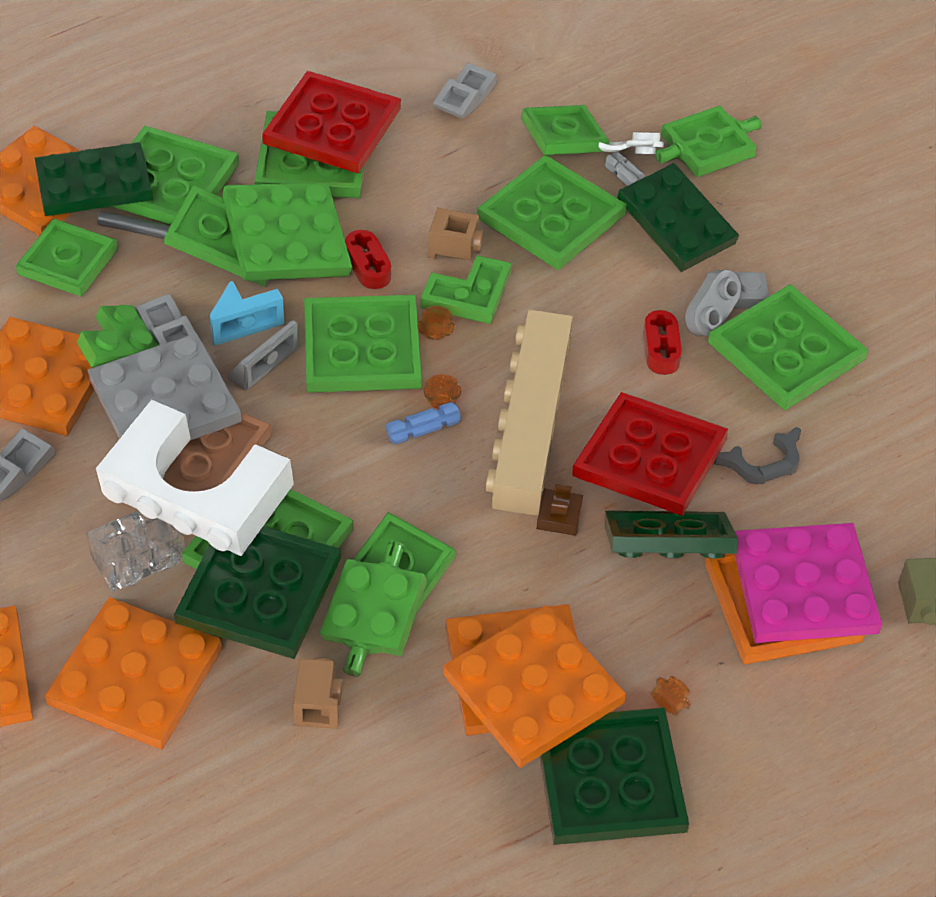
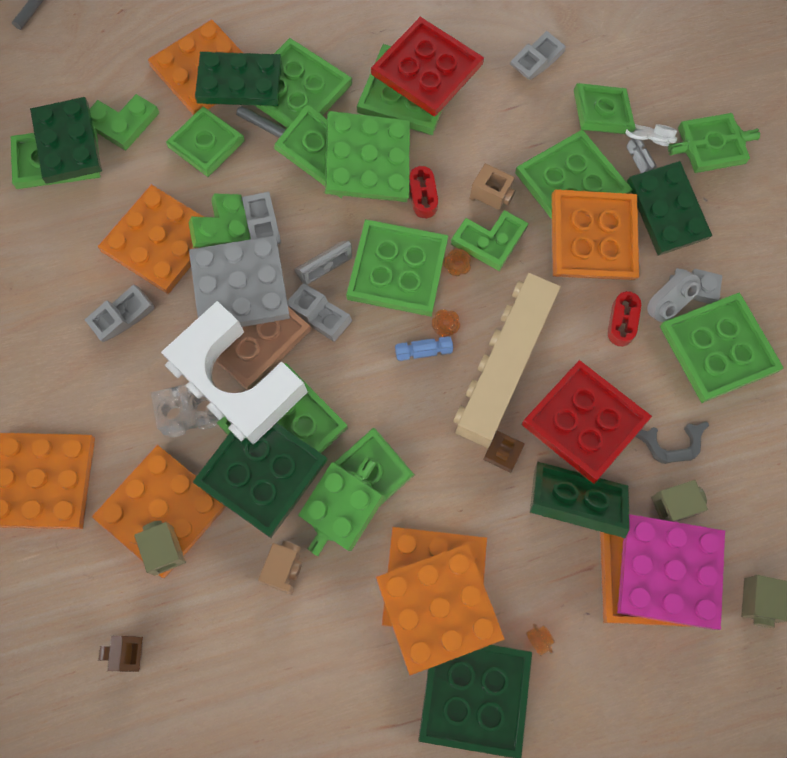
camera: 15 degrees right, 20 degrees up
(135, 836) = (122, 654): none -> reddish brown tile
(154, 695) = (159, 547): none -> olive brick
(241, 317) = (310, 224): medium azure slope -> none
(287, 417) = (318, 312): none -> light grey slope
(596, 258) = (595, 235): none -> orange plate
(792, 507) = (680, 502): none -> olive brick

